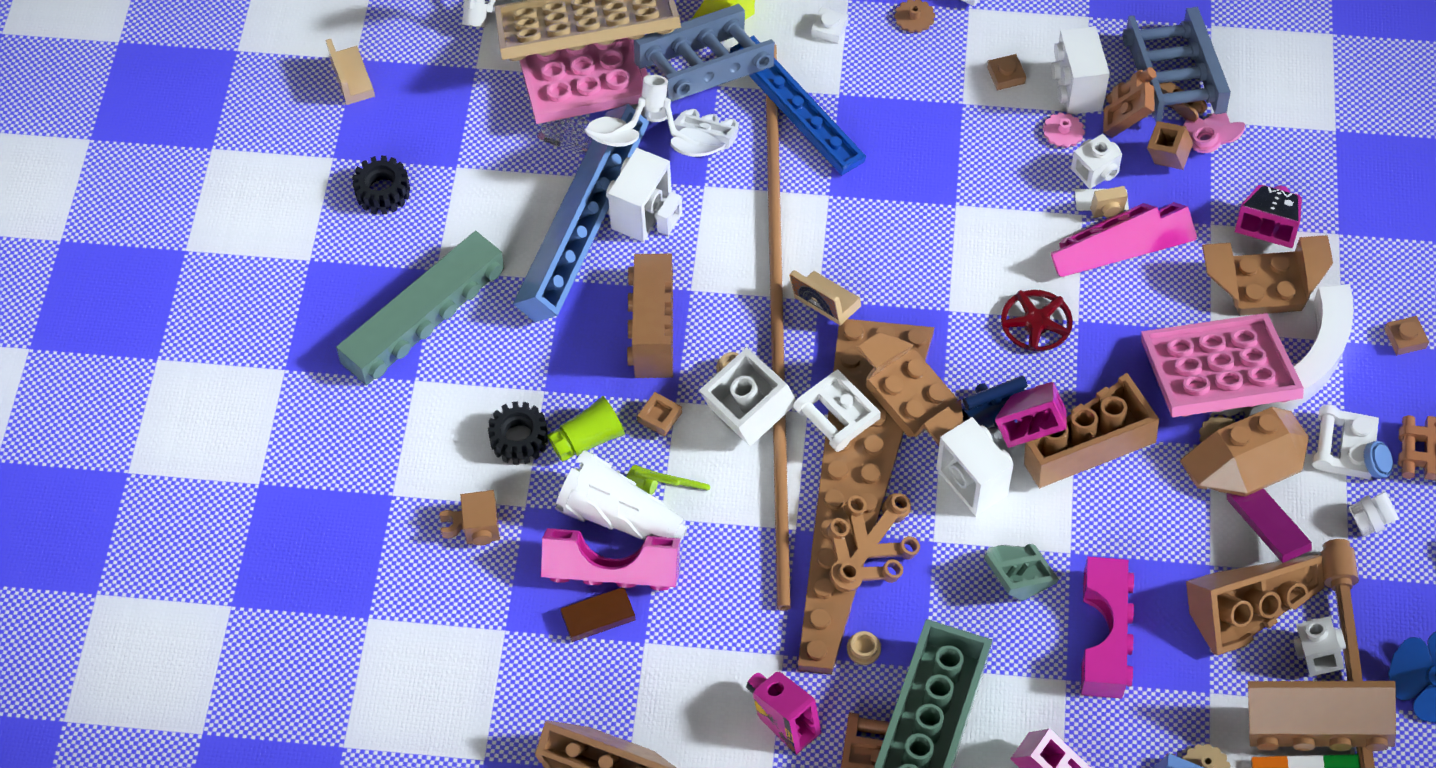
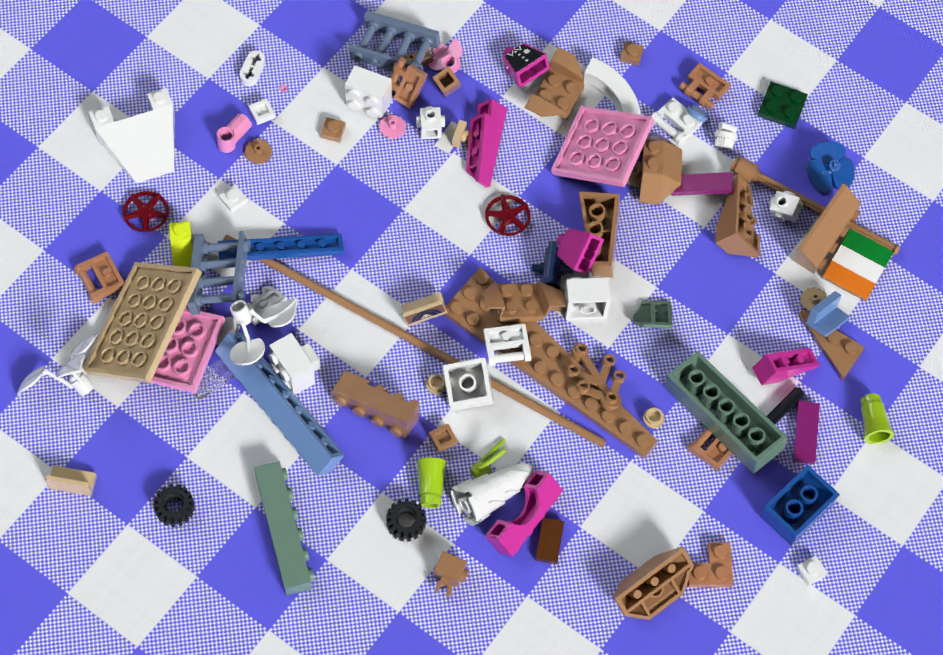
camera: 65 degrees left, 5 degrees up
(785, 709) = (670, 475): dark pink torso -> none
(1105, 665) = (694, 281): dark pink arch -> none

